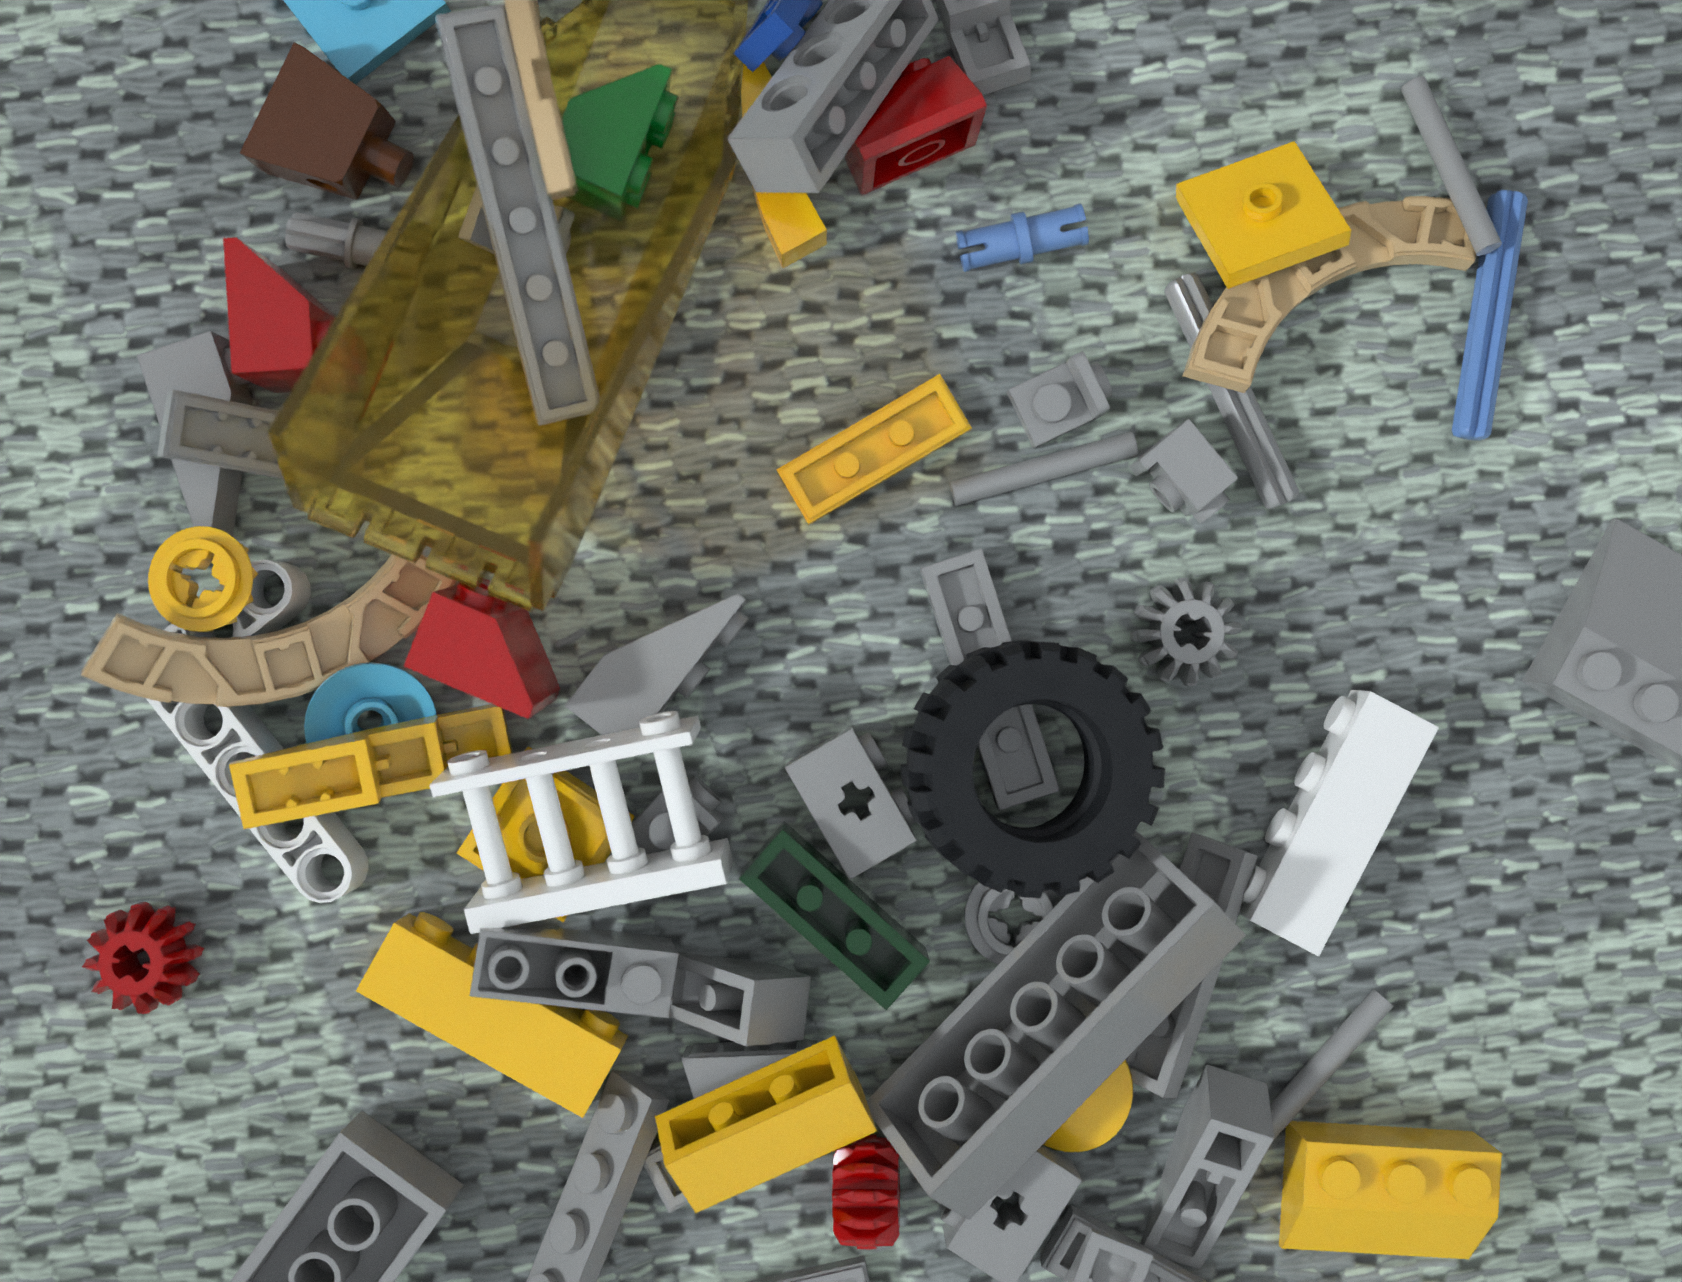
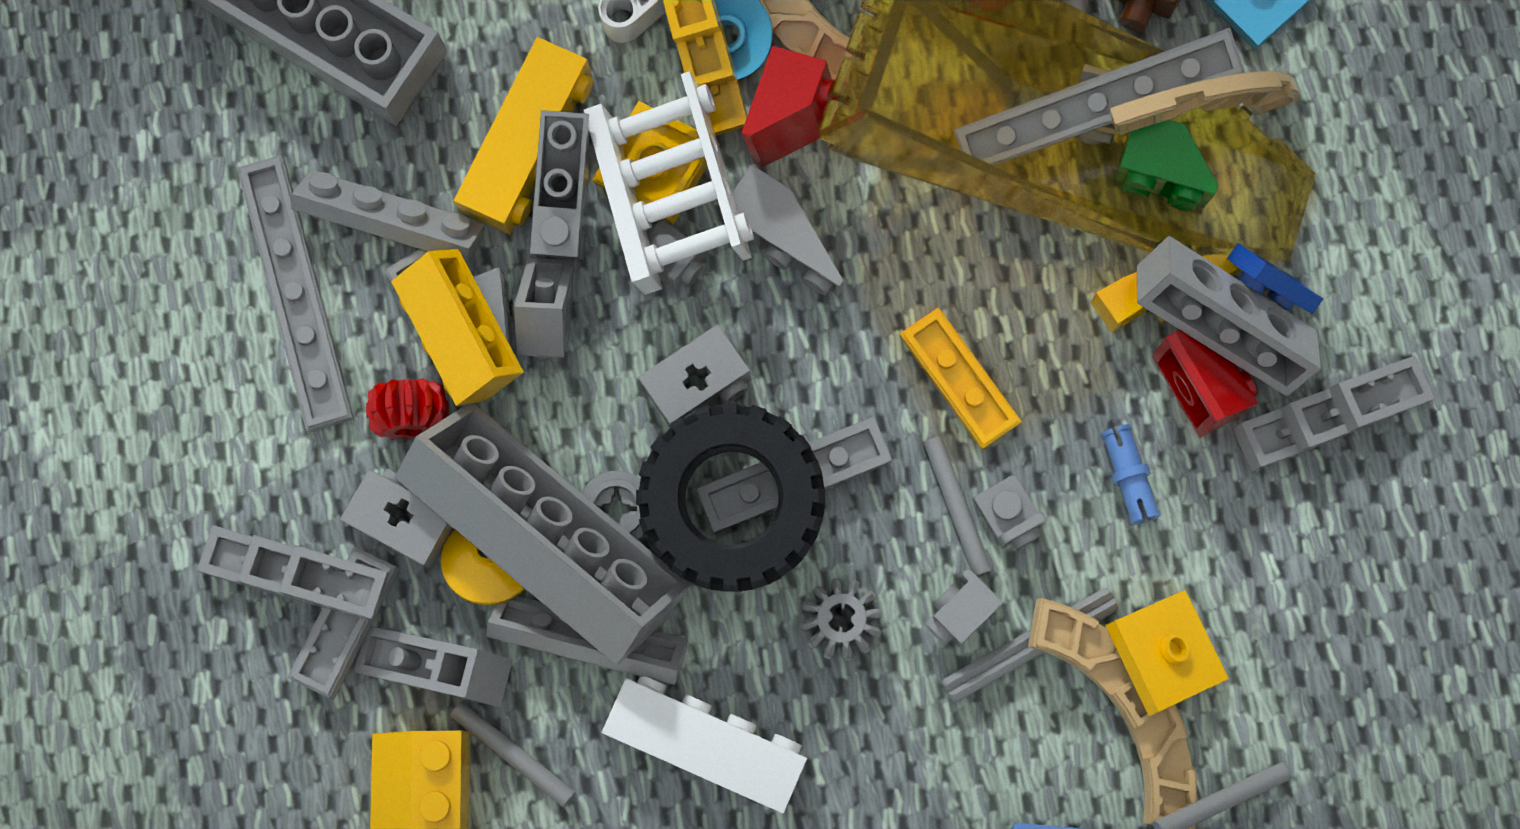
camera: 90 degrees right, 10 degrees down
(835, 915) = (611, 369): dark green brick -> none

